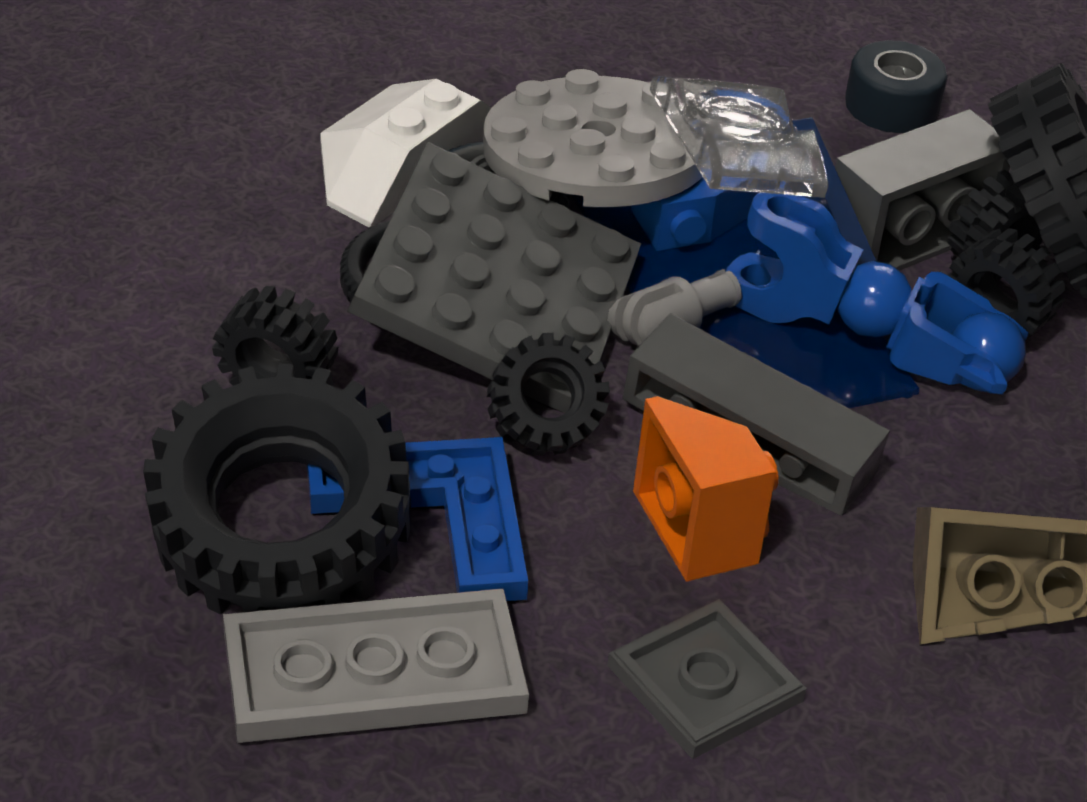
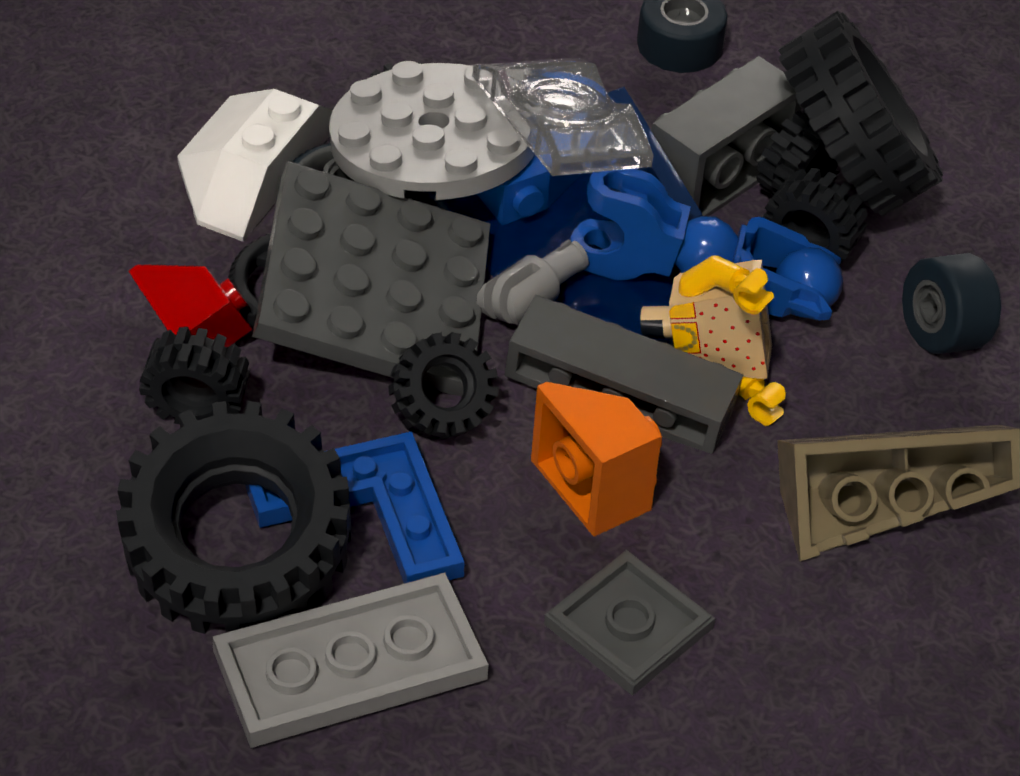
camera: 10 degrees left, 5 degrees up
(299, 265) = (193, 300): none -> red slope
(879, 365) = (723, 317): none -> torso

